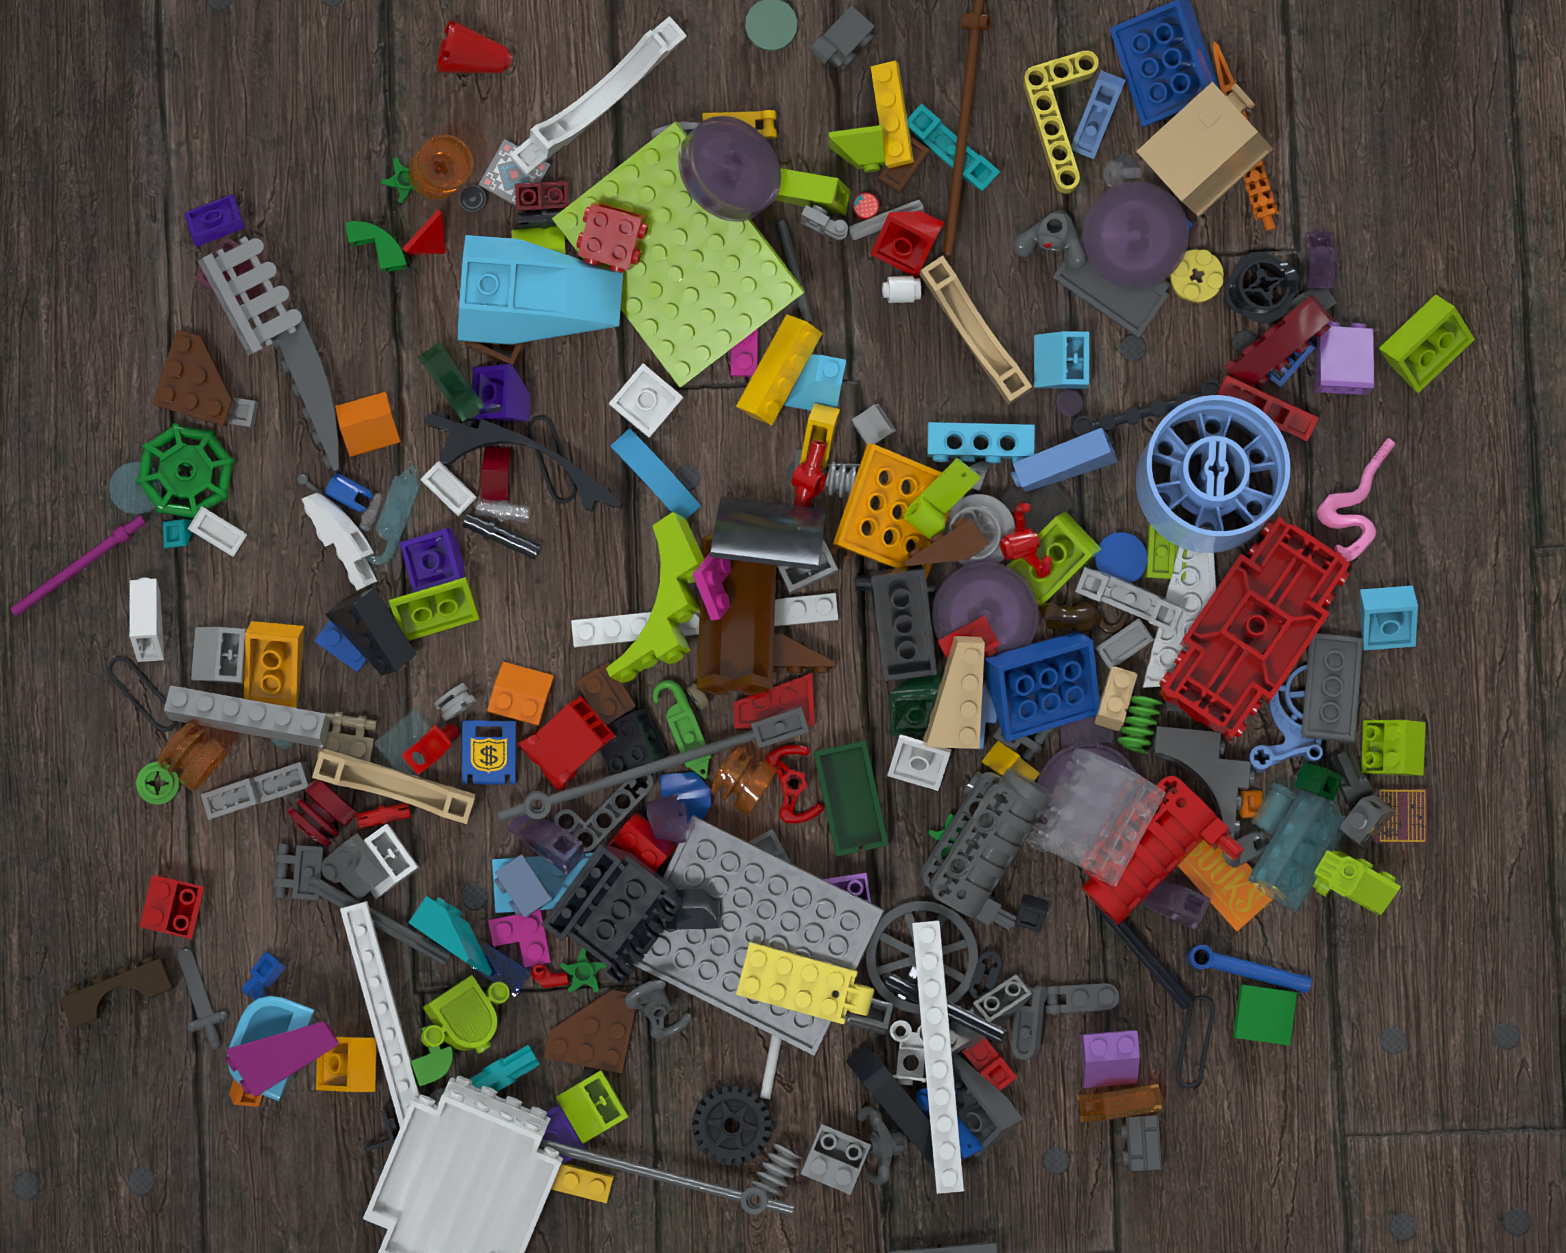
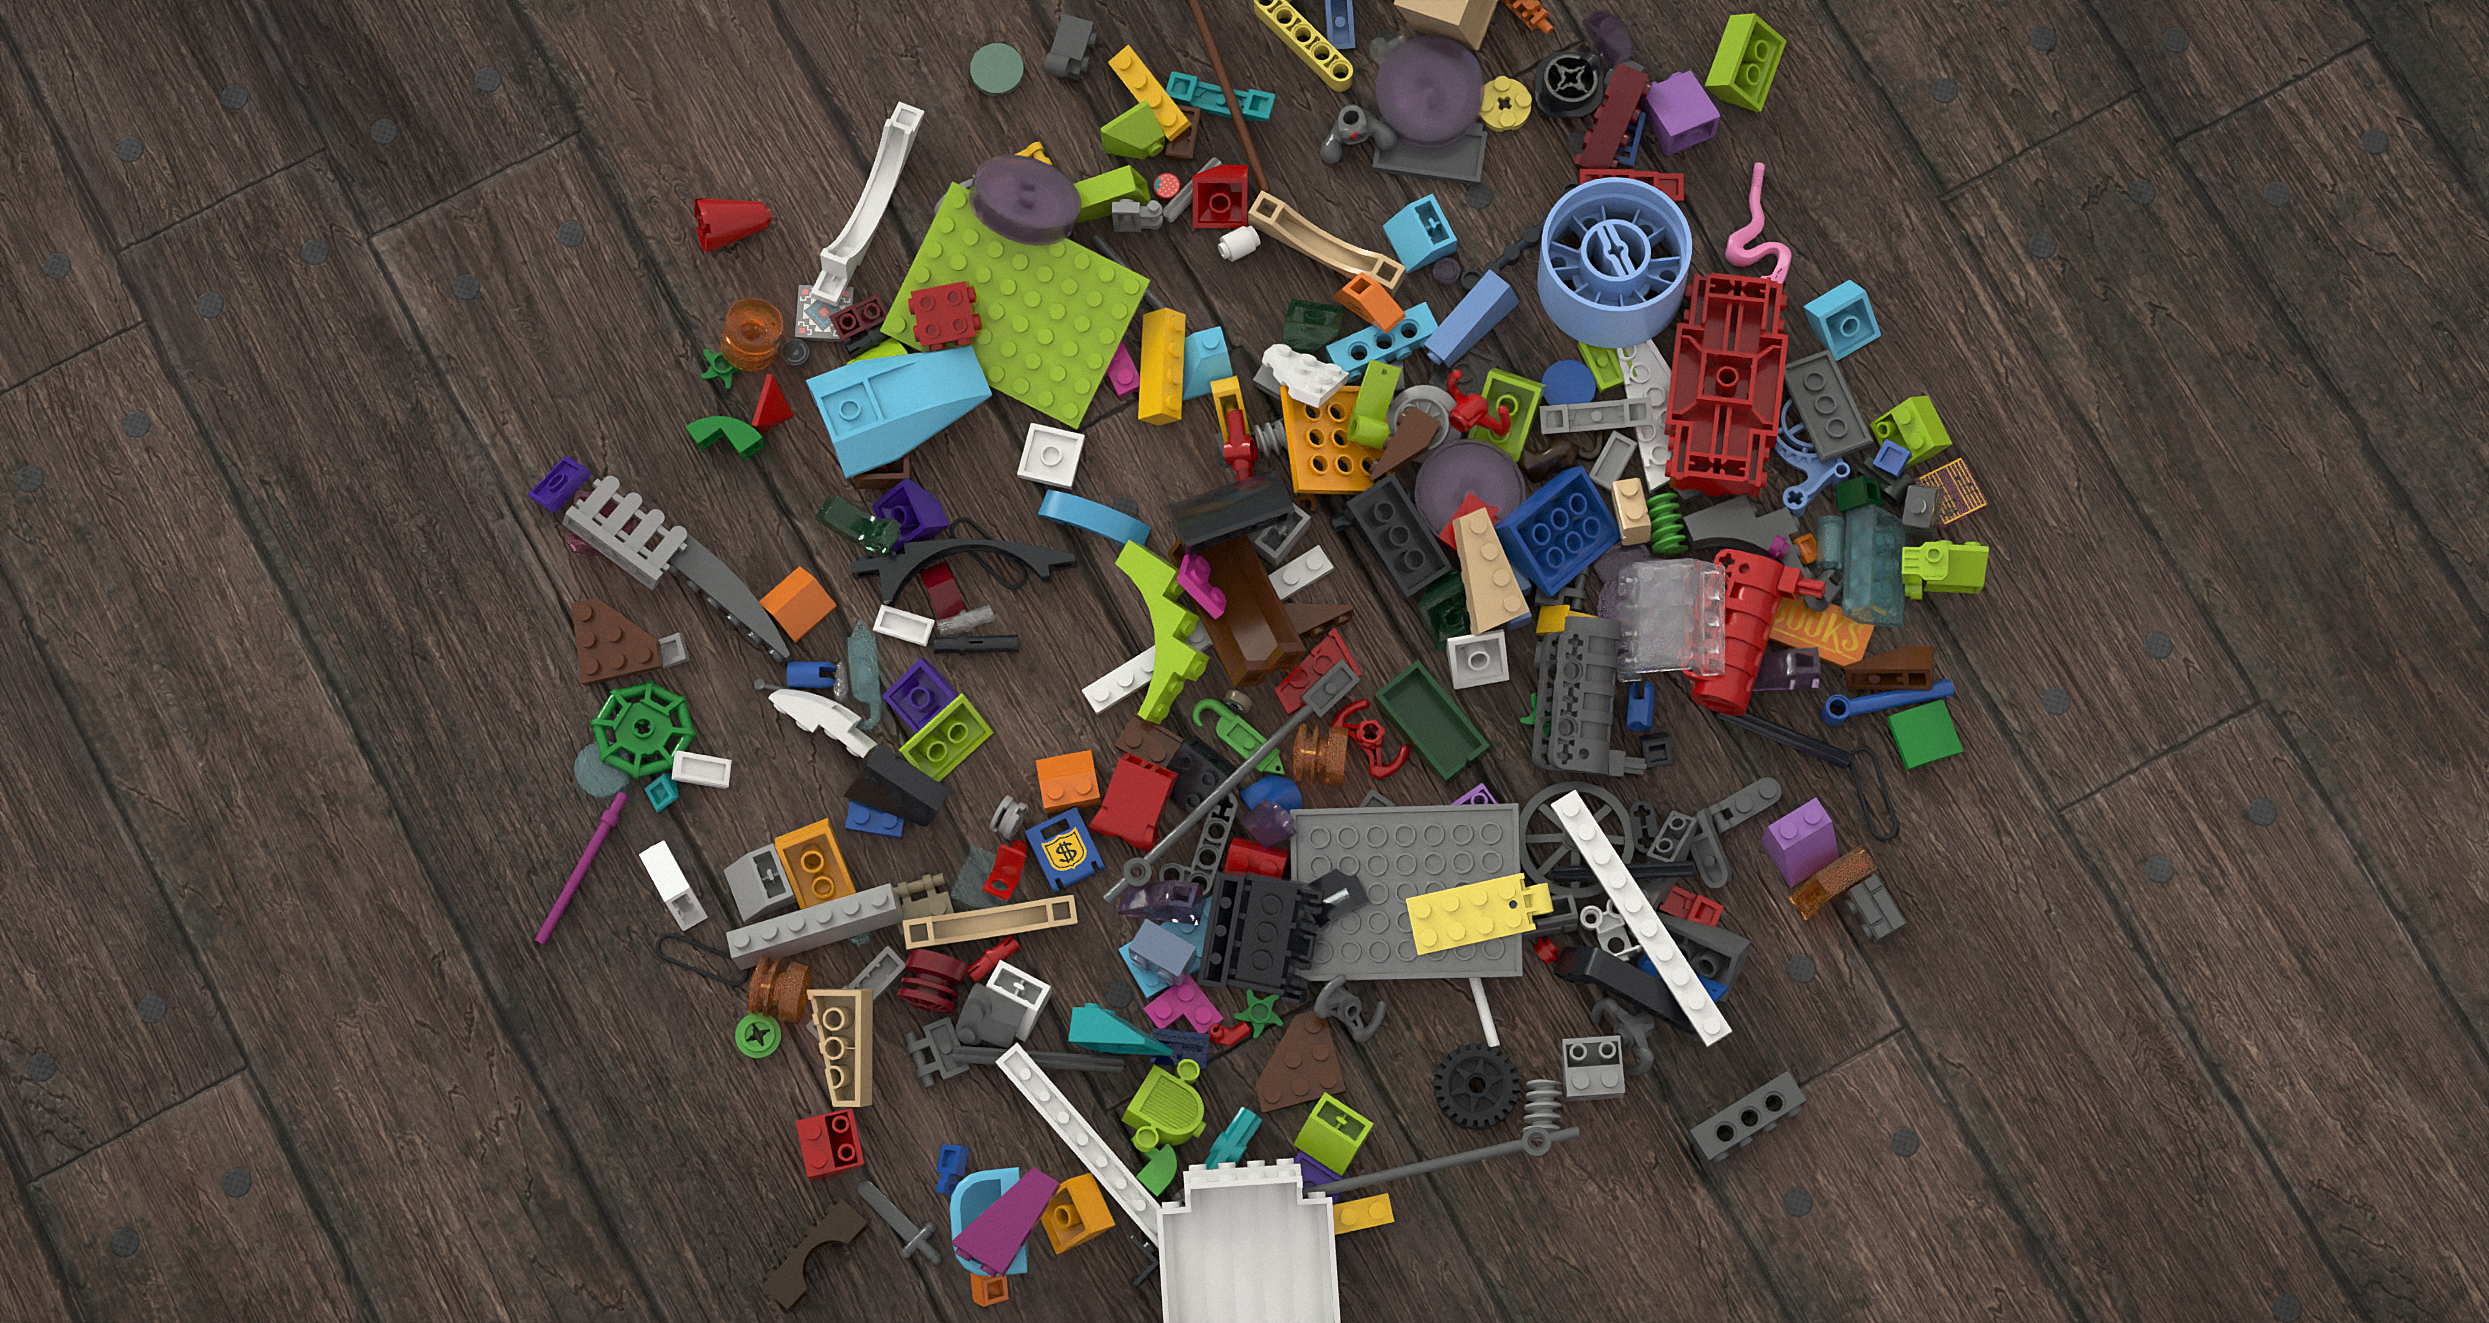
camera: 20 degrees left, 10 degrees down
(227, 824) = (845, 1037): none -> tan wedge
(849, 1039) = (1547, 950): none -> red plate
(894, 443) = (1304, 375): none -> white plate
(926, 395) = (1311, 325): none -> clear green slope
(985, 403) = (1370, 302): none -> orange slope
(1034, 872) = (1640, 712): none -> blue piece
(1222, 796) = (1778, 547): none -> magenta plate
(1270, 948) = (1894, 670): none -> reddish brown slope
(1362, 764) = (1892, 458): none -> blue tile

